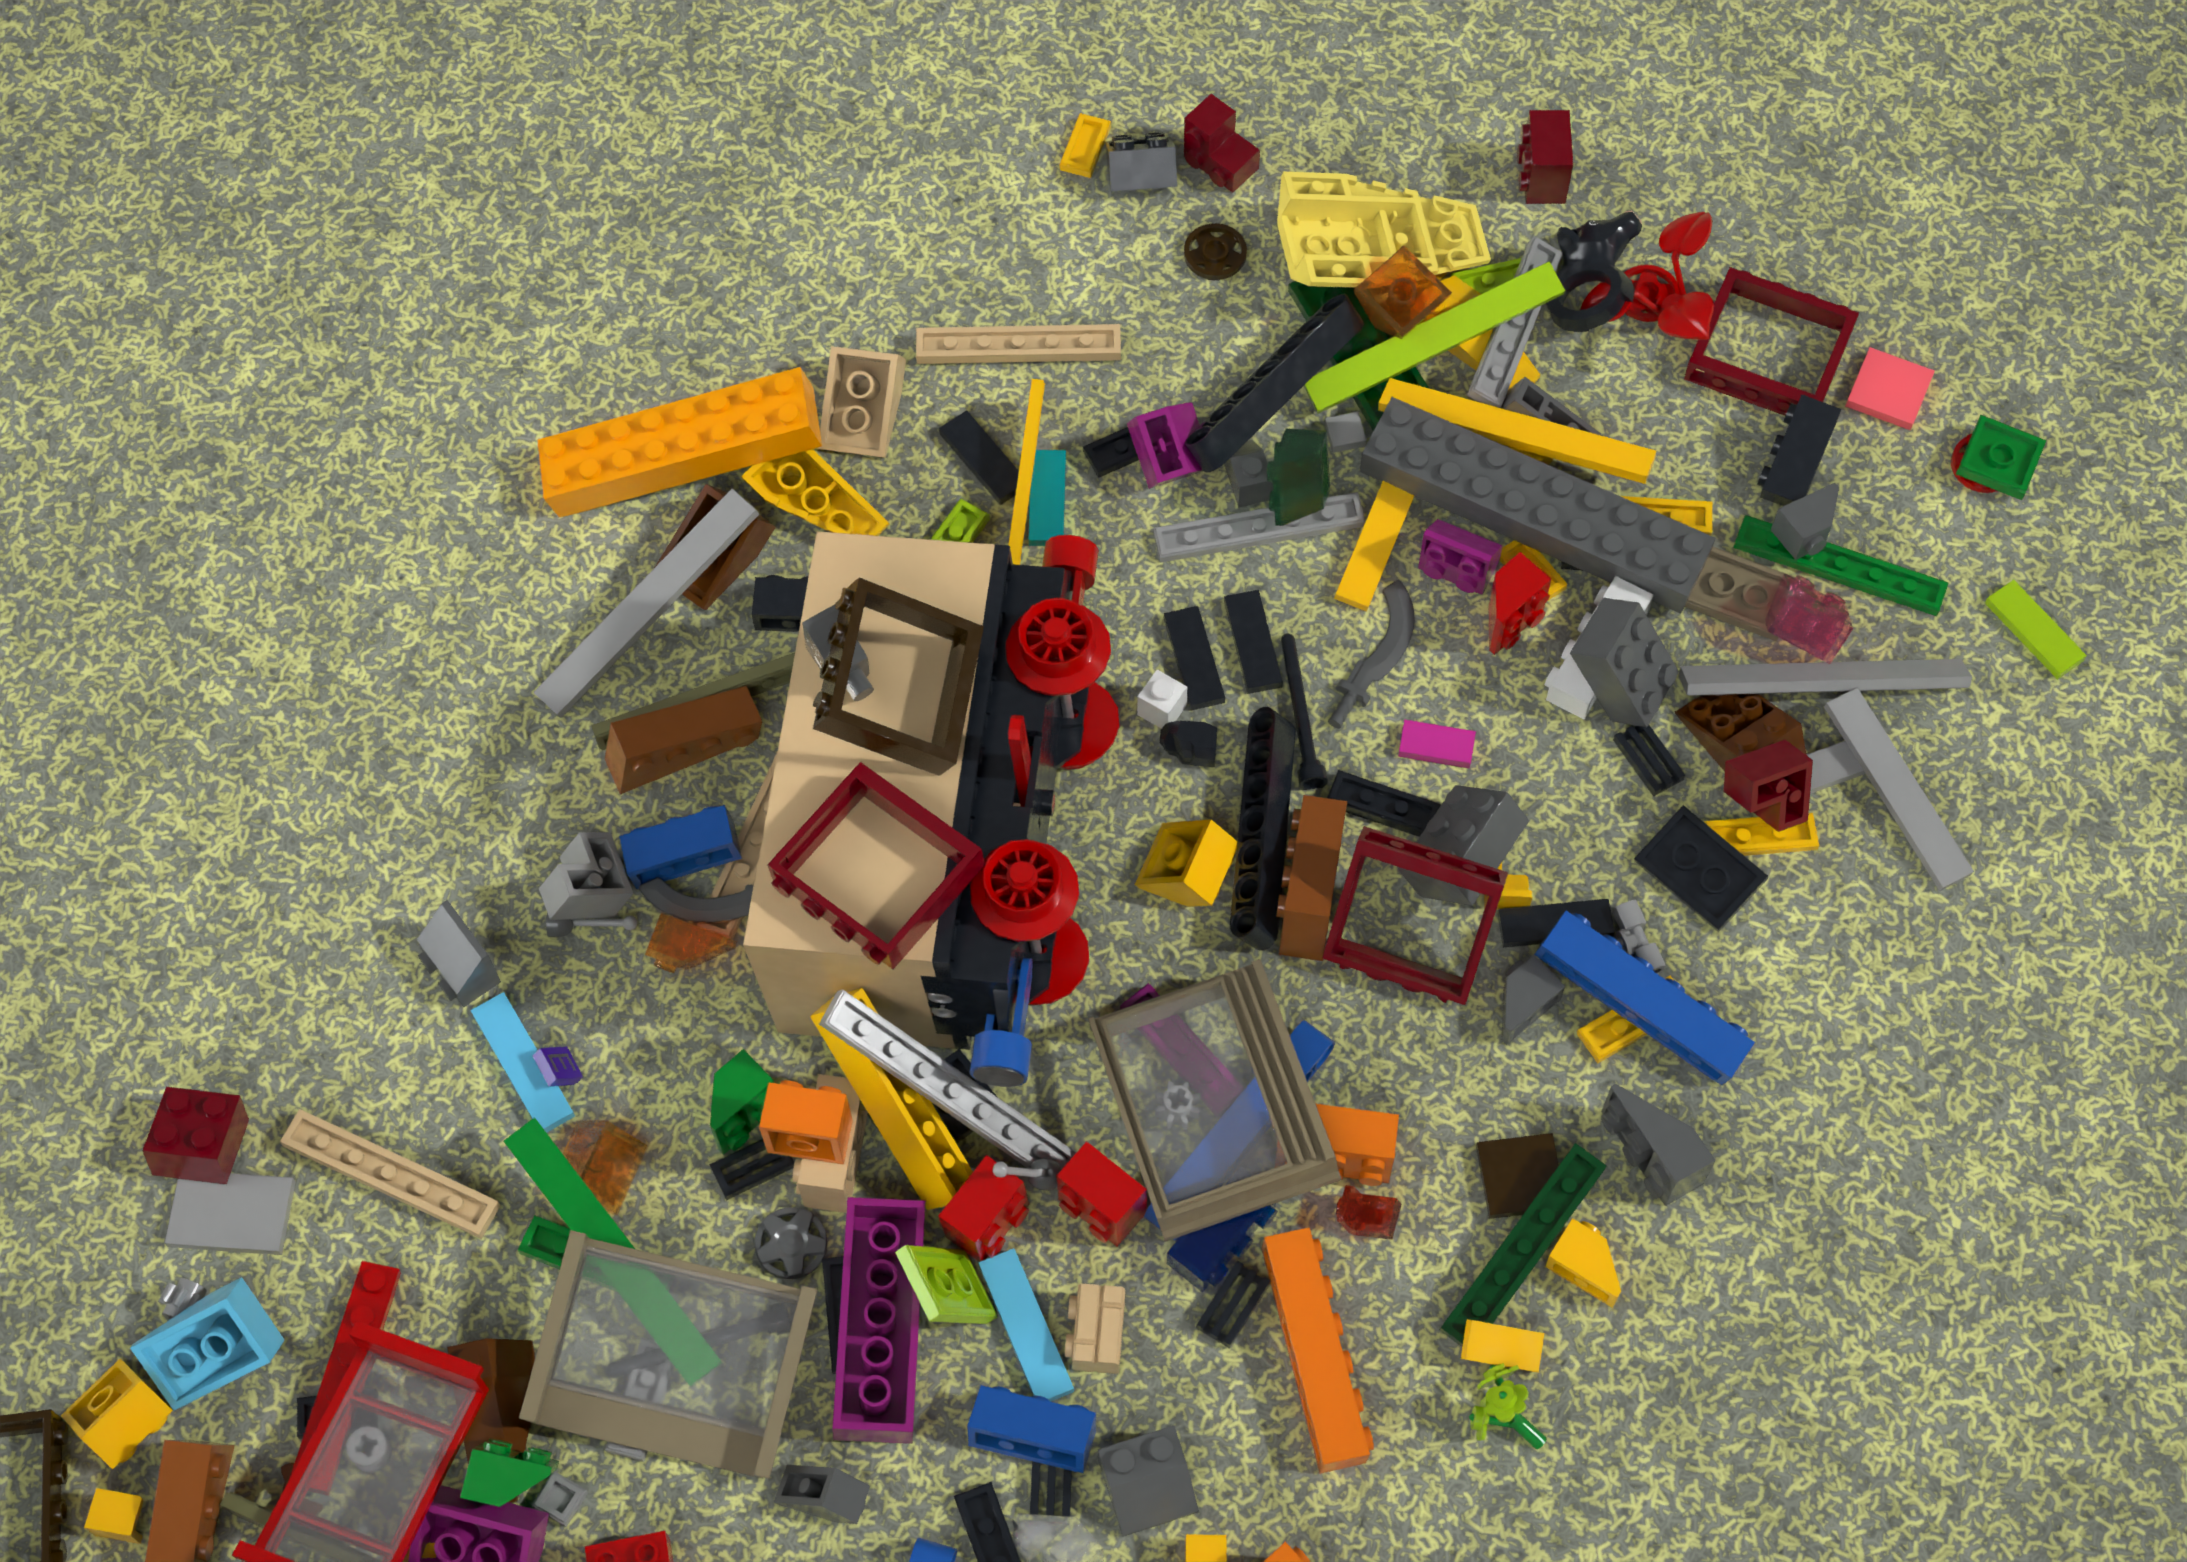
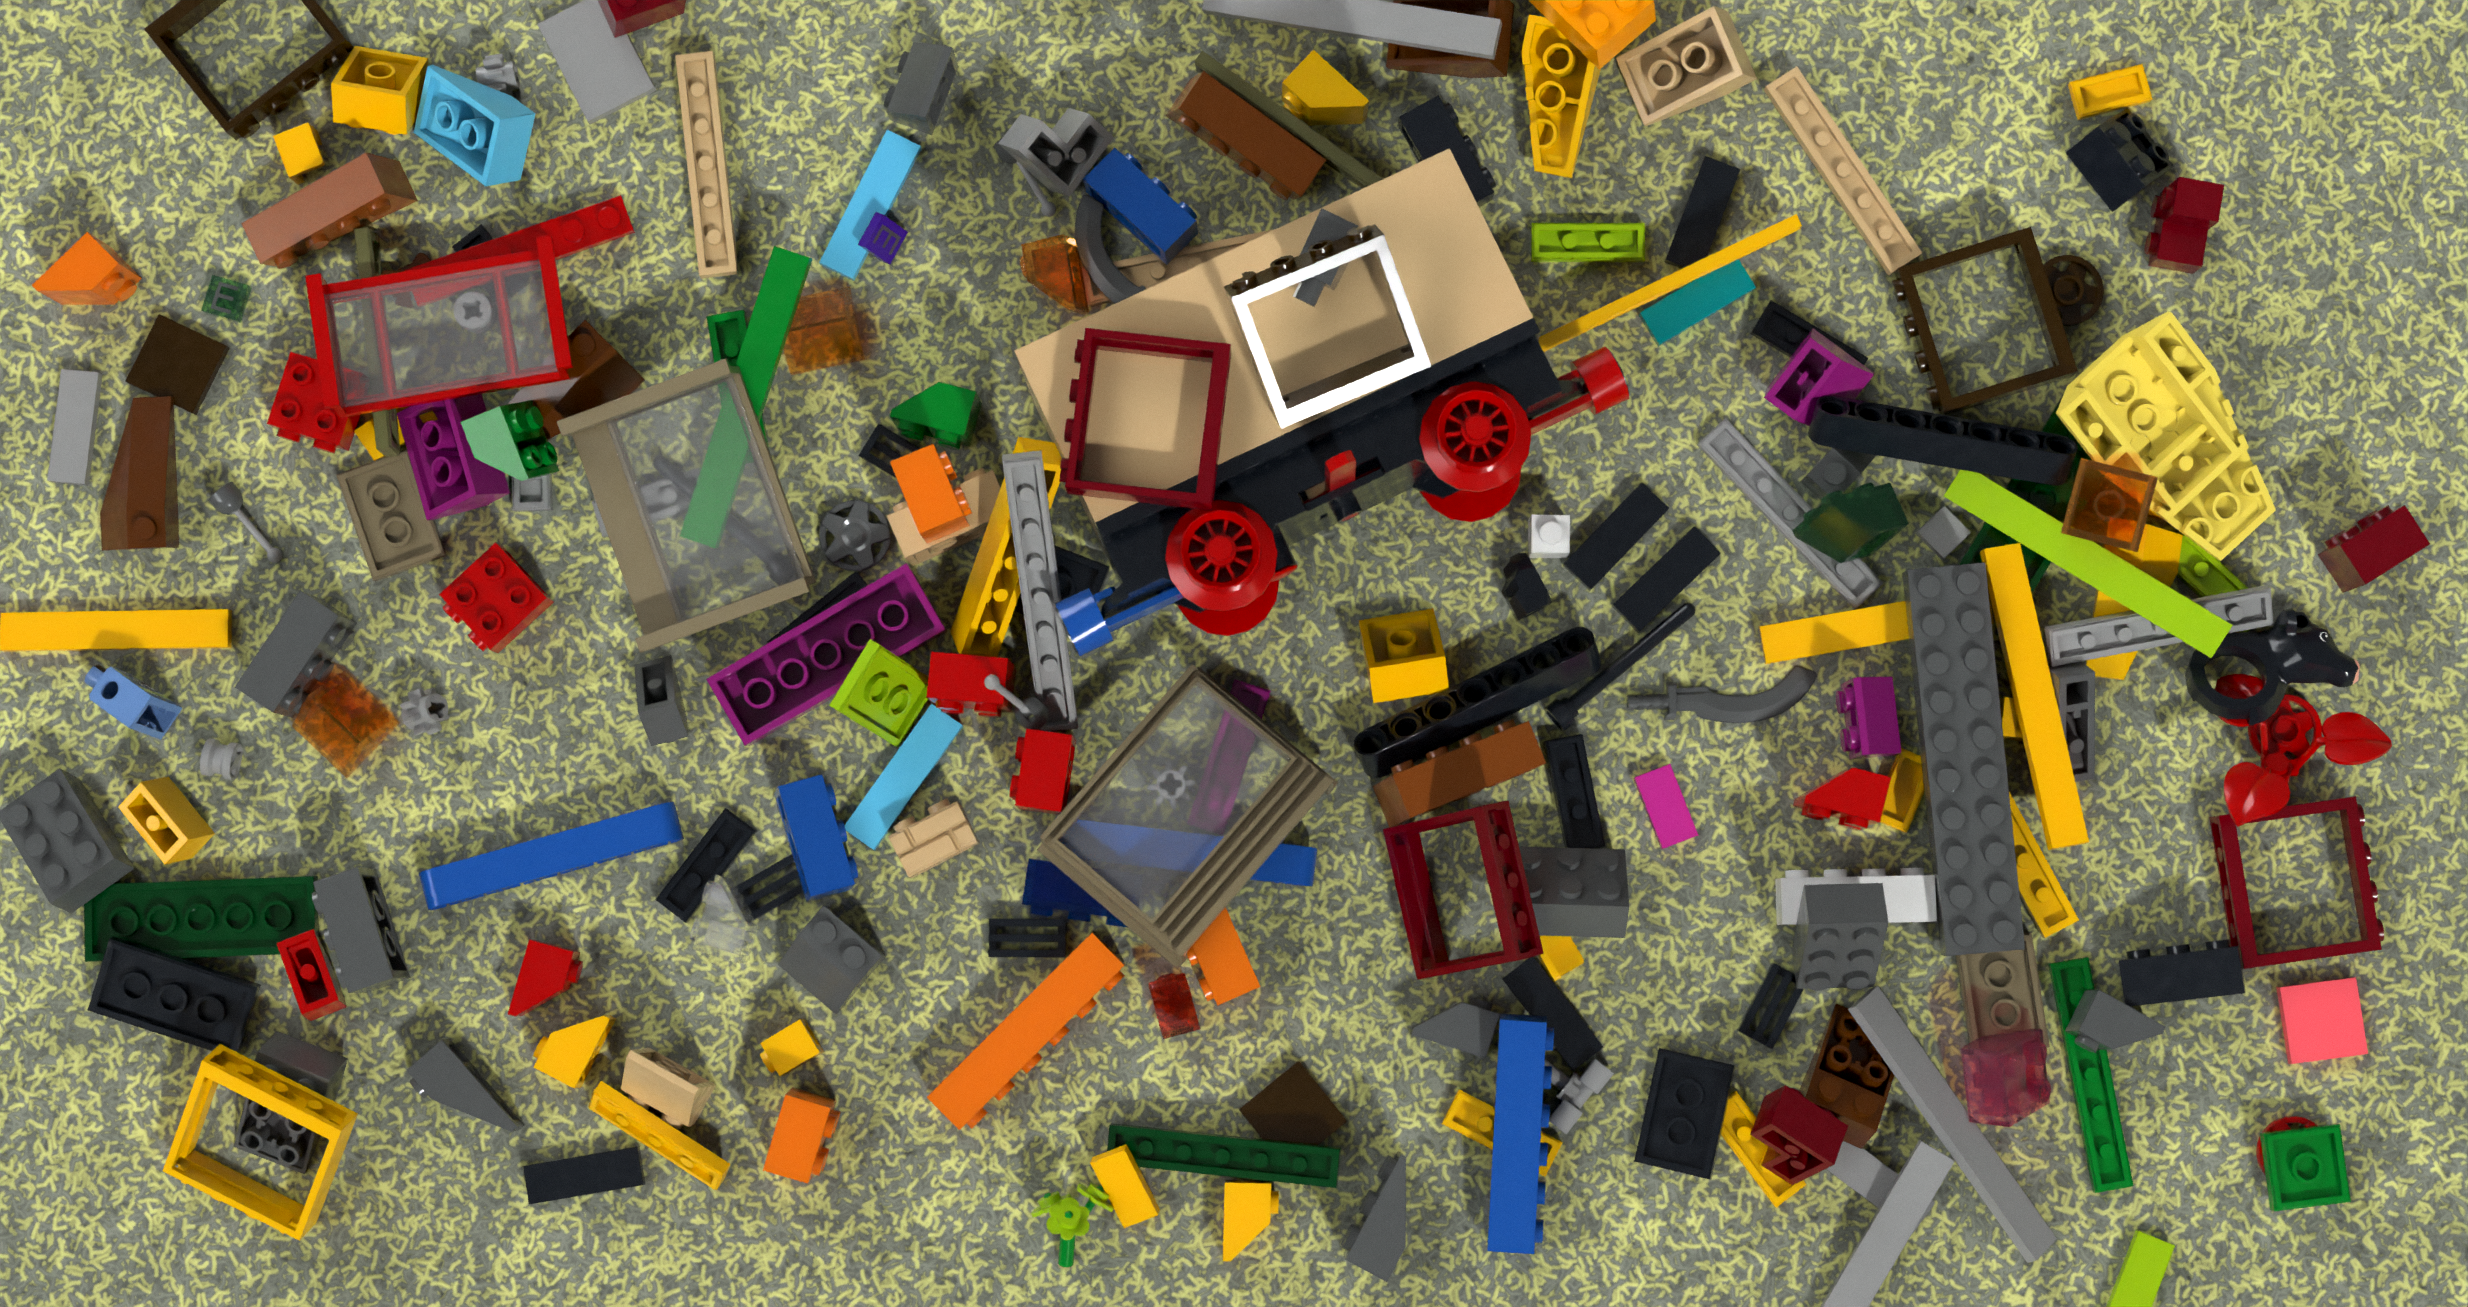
camera: 60 degrees right, 20 degrees up
(694, 654) = (1322, 94): none -> yellow slope
(1213, 265) = (2044, 304): none -> dark brown window

